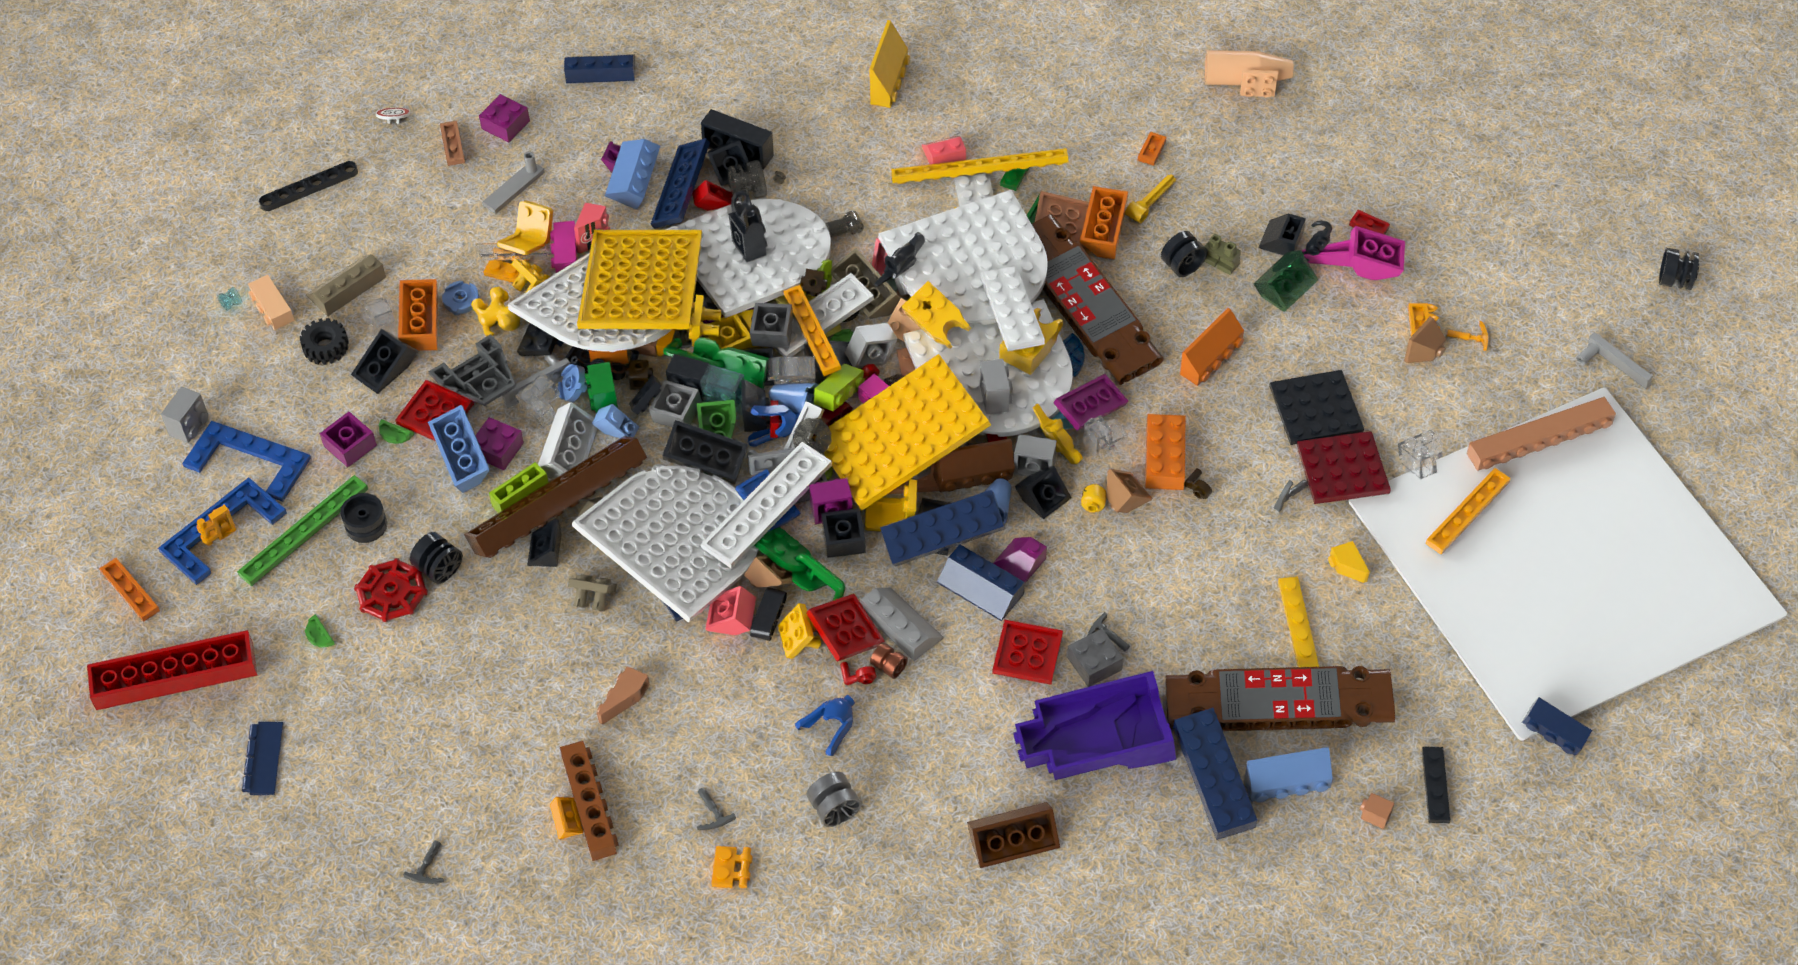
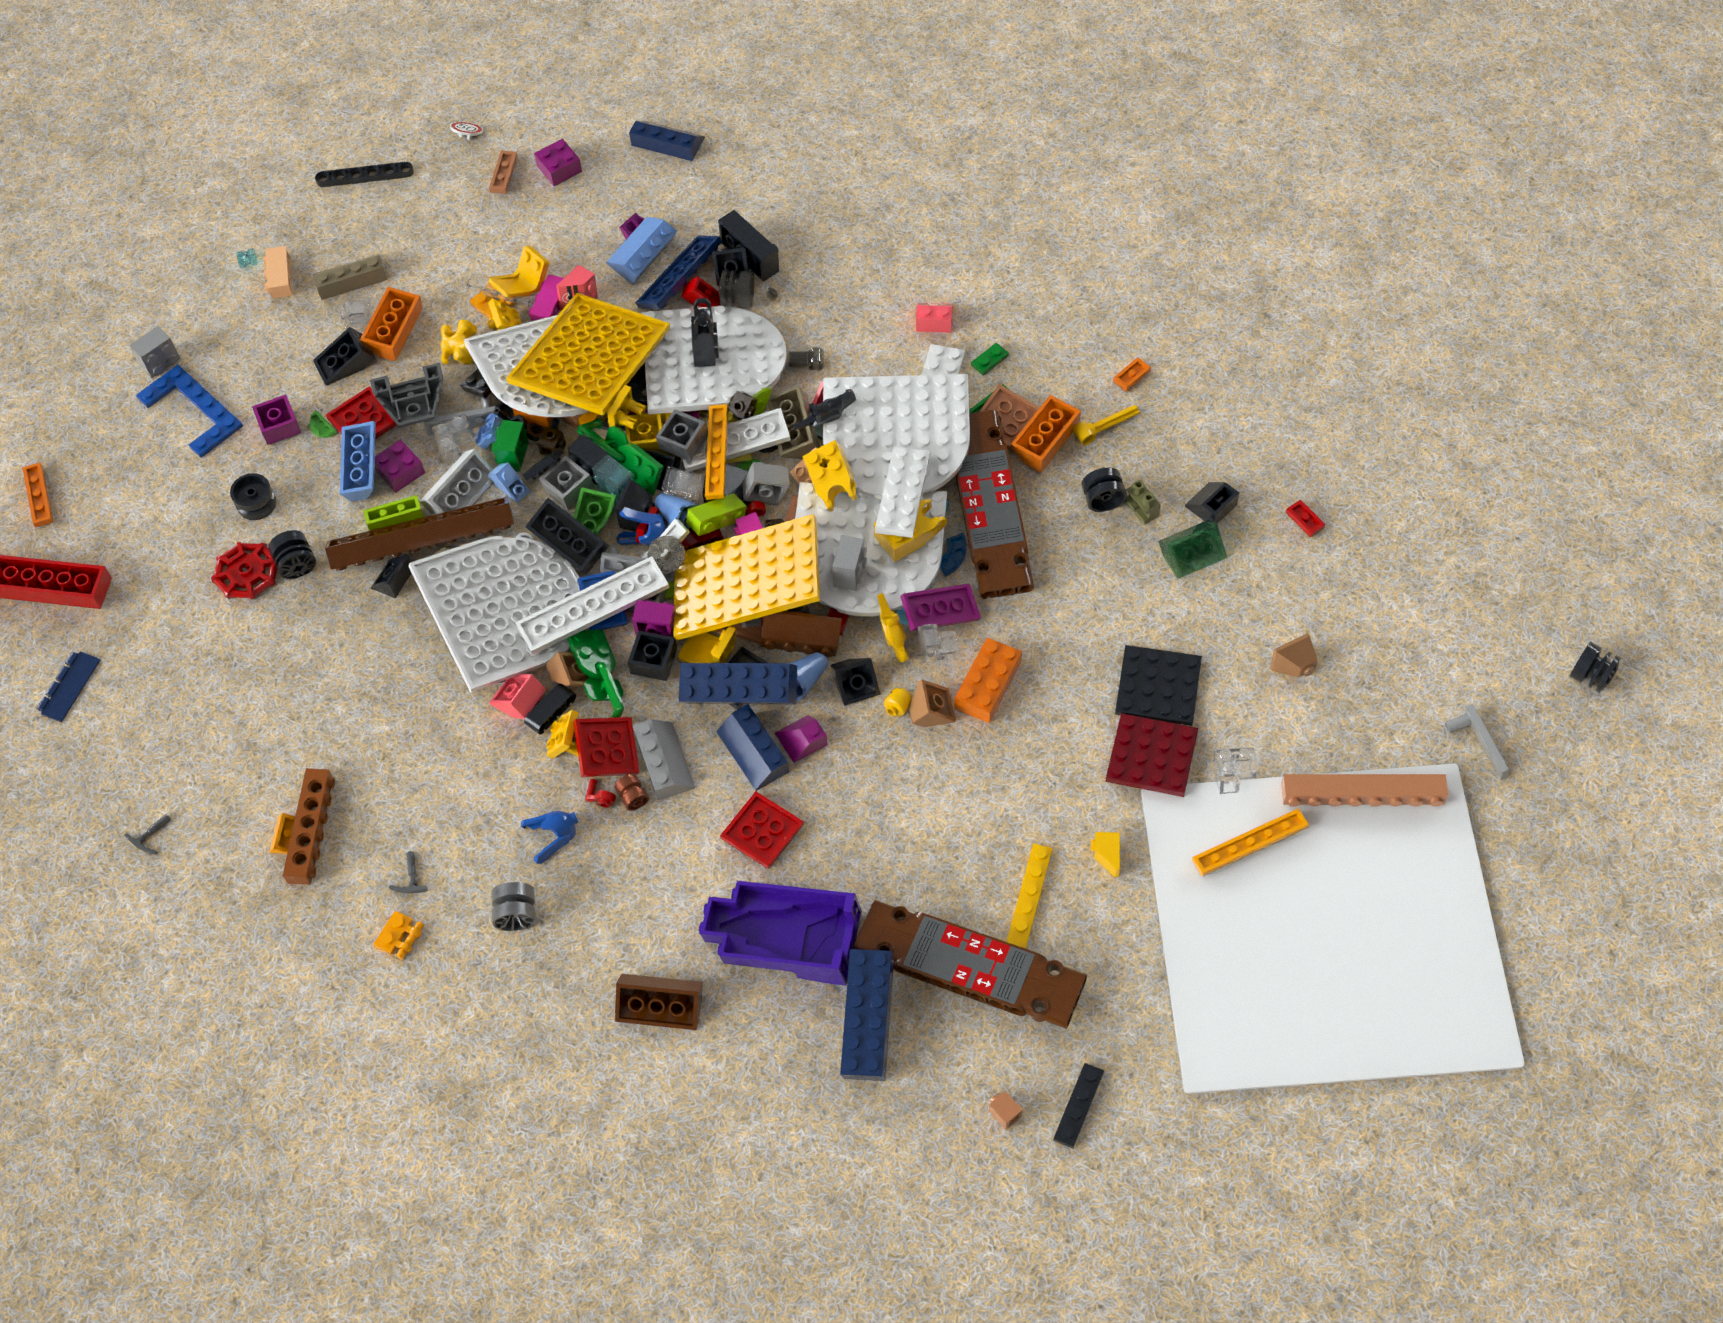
camera: 25 degrees right, 5 degrees up
(178, 546) = (93, 470): blue plate -> none
(221, 523) = (134, 459): light orange plate -> none
(300, 532) = (197, 491): bright green plate -> none
(317, 633) = (167, 588): bright green tile -> none
(321, 331) = (299, 314): black tyre -> none
(456, 305) = (437, 310): medium blue plate -> none
(514, 185) = (538, 228): light grey piece -> none
(585, 583) = (410, 627): dark tan plate -> none
(626, 692) = (389, 738): nougat slope -> none
(888, 67) = (919, 216): yellow slope -> none
(981, 165) = (957, 340): yellow plate -> none
(1033, 454) = (860, 641): light grey brick -> none
(1095, 657) = (818, 858): flat silver brick -> none
(1112, 636) = (848, 841): dark grey piece -> none
(1200, 487) = (1003, 728): dark brown plate -> none
(1212, 348) = (1083, 592): orange slope -> none
(1251, 70) = (1262, 324): light nougat piece -> none
(1287, 492) = (1077, 764): dark grey piece -> none
(1288, 774) = (937, 1043): medium blue slope -> none
(1368, 252) = (1281, 546): dark pink slope -> none
(1419, 313) = (1309, 624): light orange plate -> none
(1467, 336) = (1344, 663): light orange piece -> none
(1556, 726) = (1223, 1094): dark blue brick -> none

